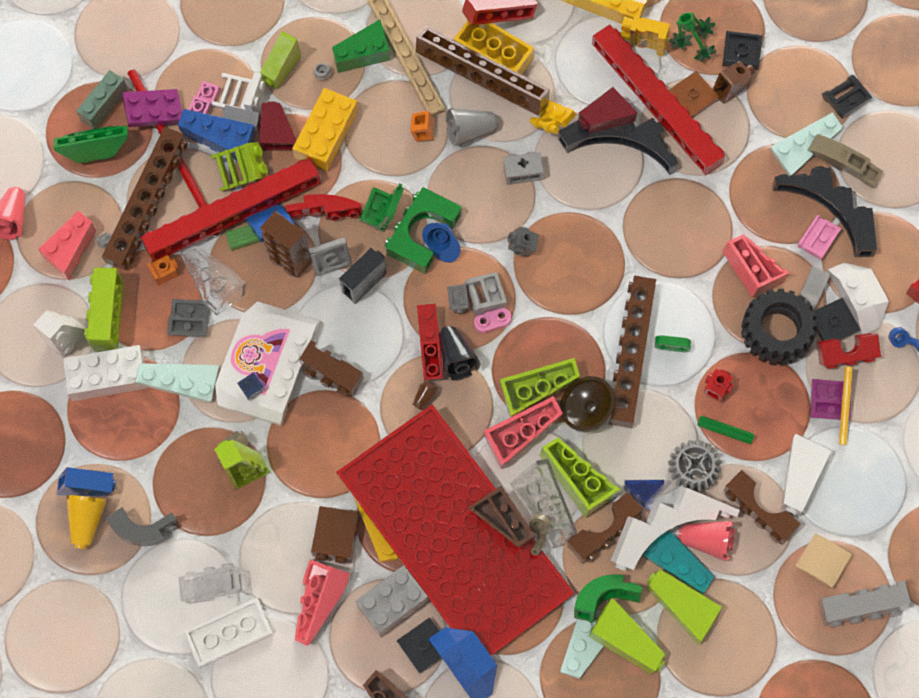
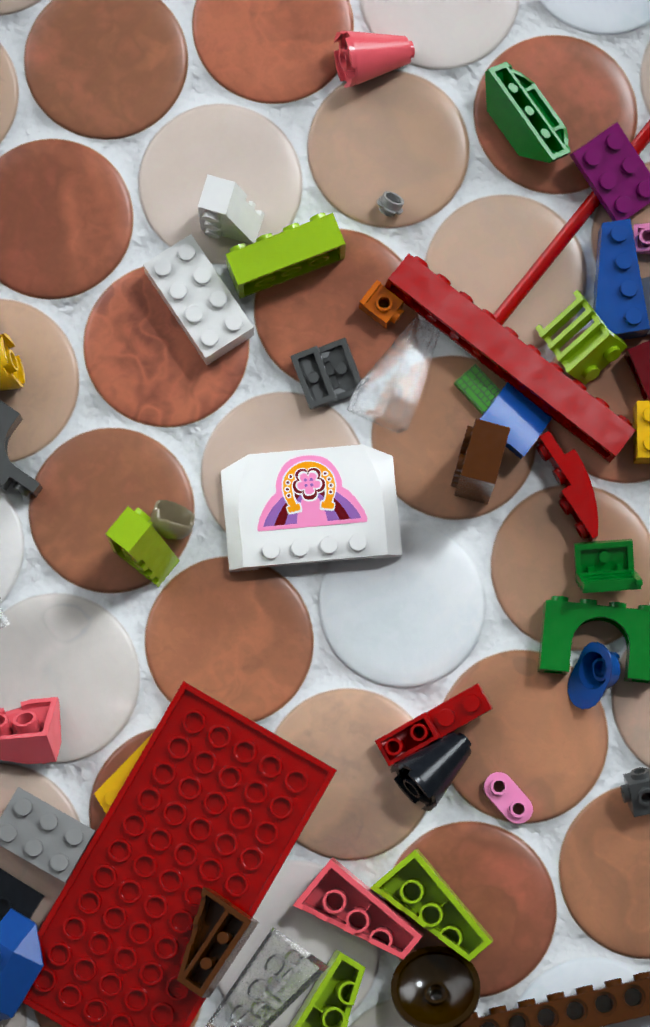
camera: 60 degrees right, 10 degrees up
(68, 244) = (361, 158): coral wedge -> none
(85, 483) = (34, 348): blue slope -> none
(102, 99) = (597, 97): sand green brick -> none
(168, 139) = (487, 220): reddish brown brick -> none
(180, 379) = (232, 409): light aqua wing -> none
(250, 386) = (259, 506): dark blue plate -> none
(330, 256) = (498, 528): light grey plate -> none
(330, 370) = (332, 605): reddish brown wedge -> none
(335, 534) = (103, 717): reddish brown brick -> none
(363, 275) = (491, 588): black brick -> none
(424, 394) = (356, 750): reddish brown cone -> none
(458, 298) = (517, 735): flat silver bracket -> none
(491, 290) = (548, 779): light grey plate -> none
(540, 525) = (226, 998): dark tan plate -> none

